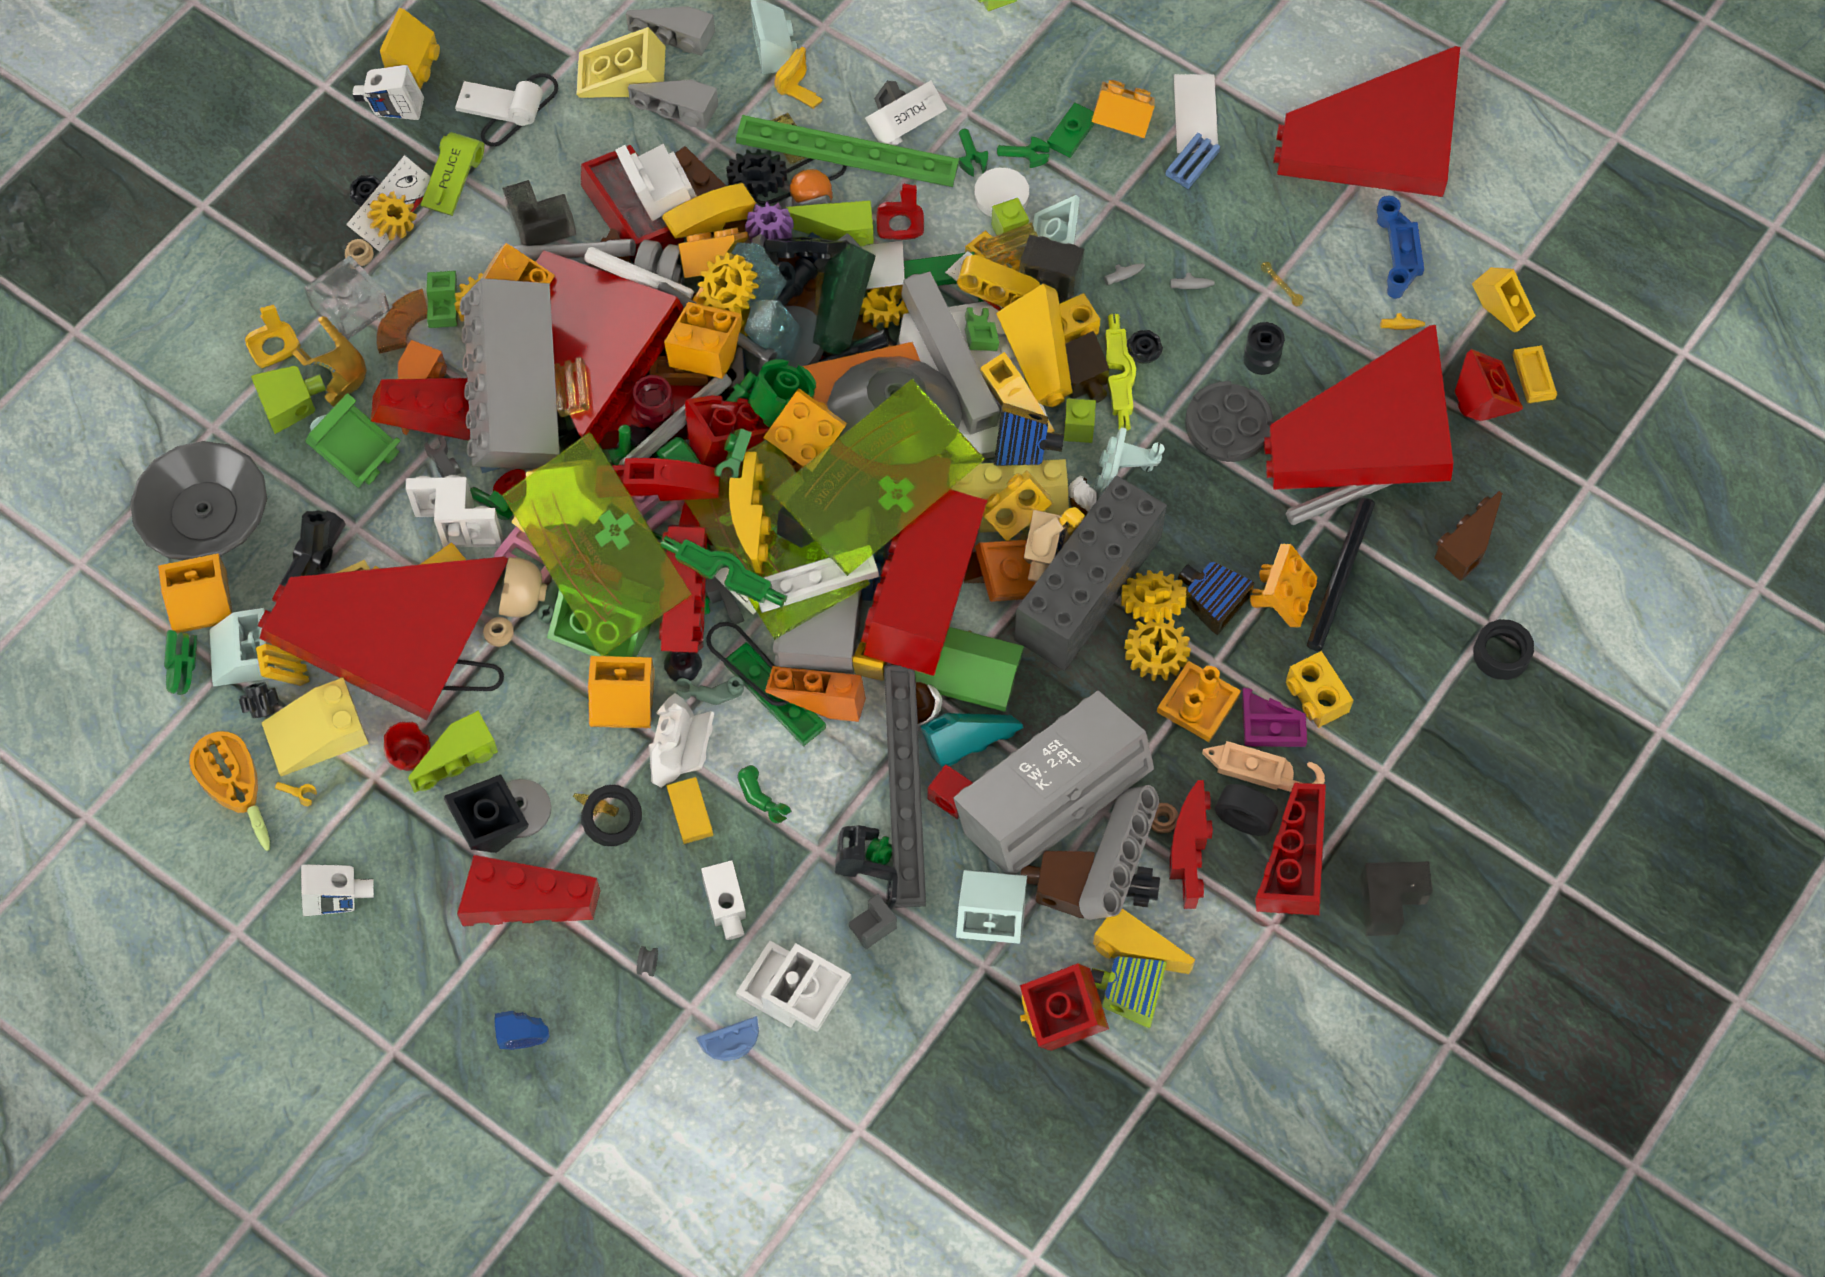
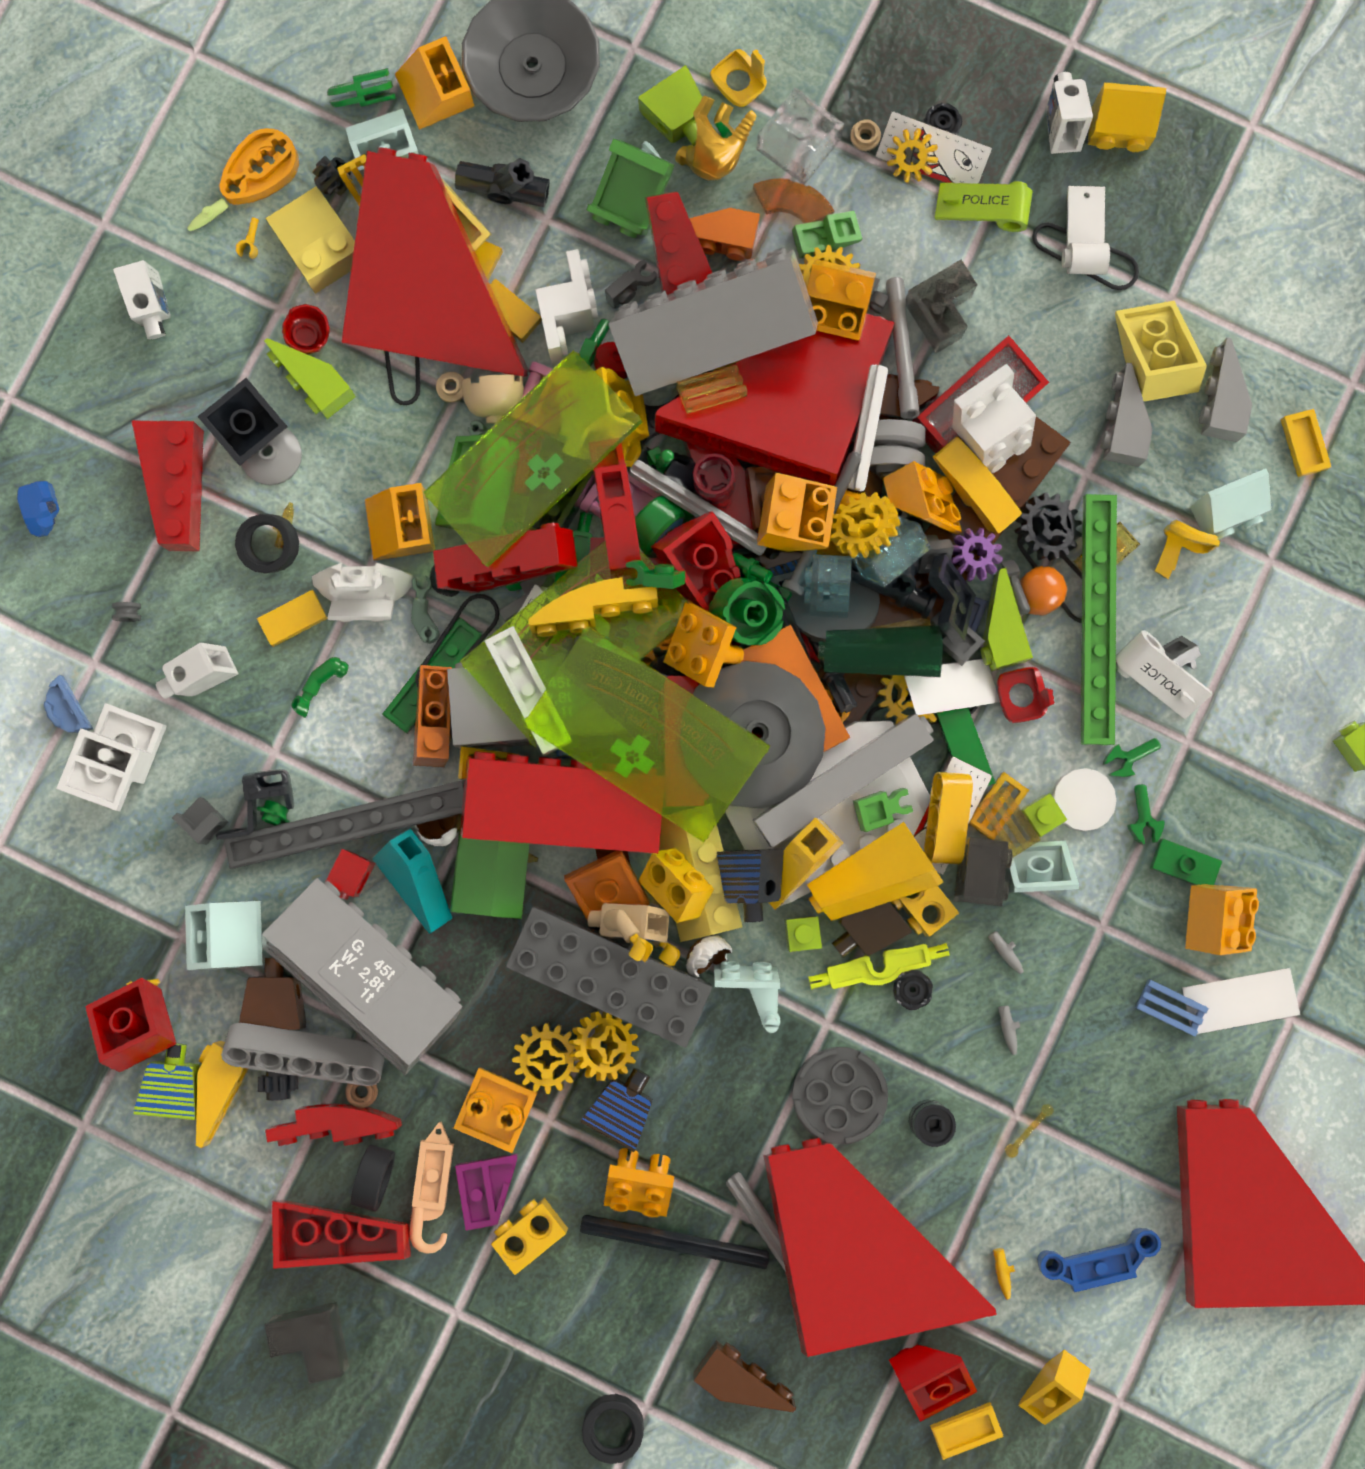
camera: 80 degrees right, 20 degrees up
(738, 578) = (518, 577): green piece -> none

